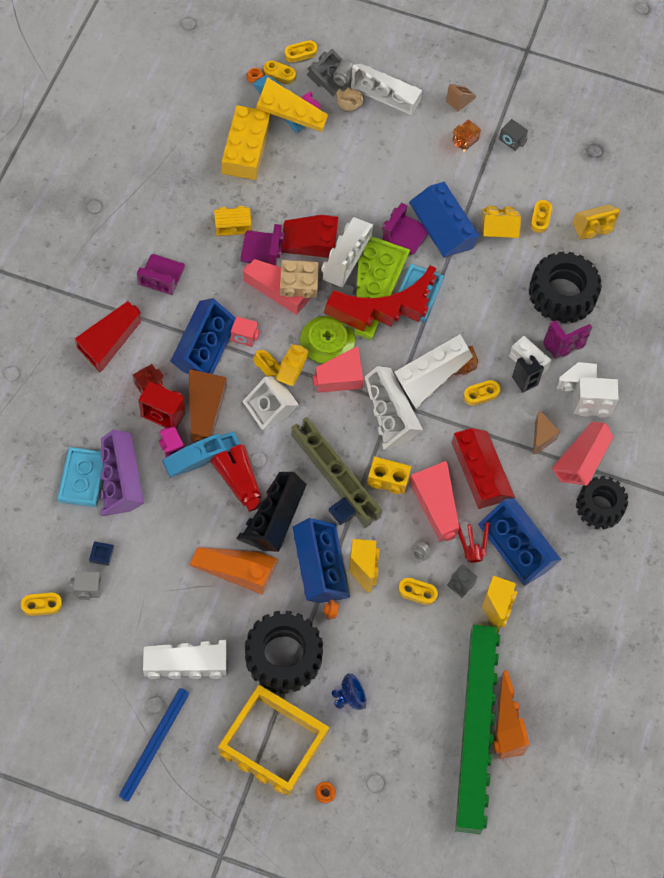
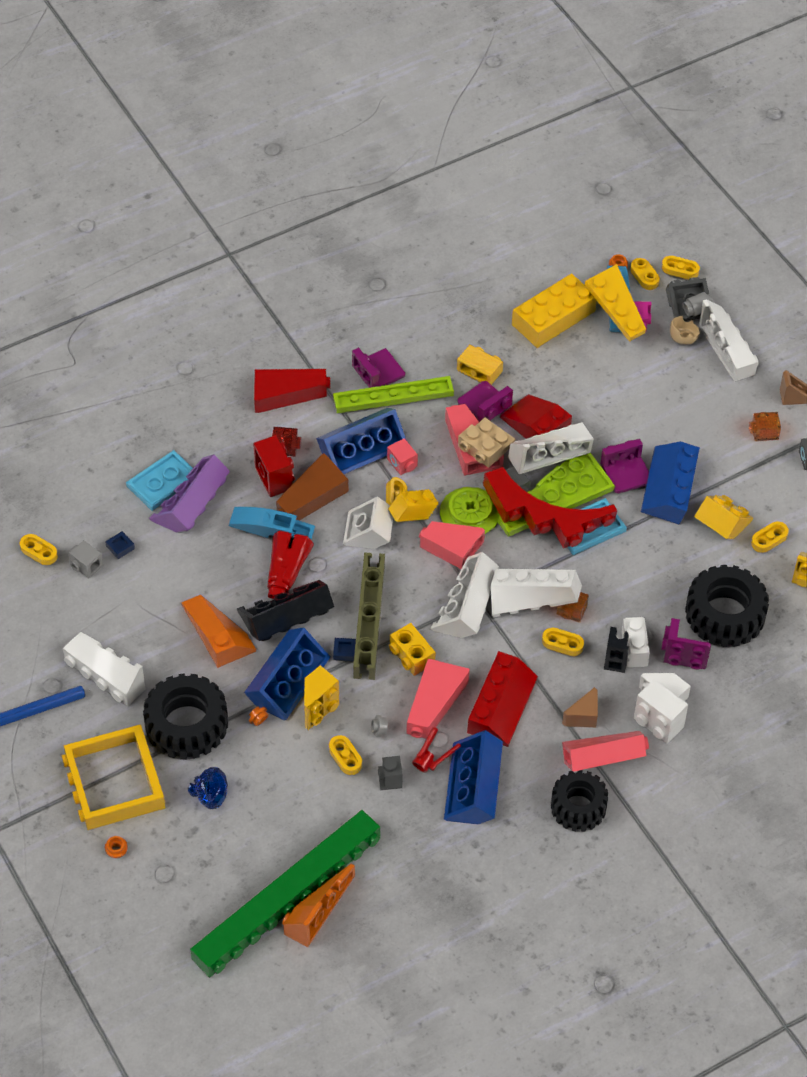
camera: 45 degrees right, 10 degrees down
(170, 441) = (256, 497): dark pink brick -> none
(190, 287) = (393, 394): none -> lime plate
(499, 601) = (402, 809): yellow slope -> none

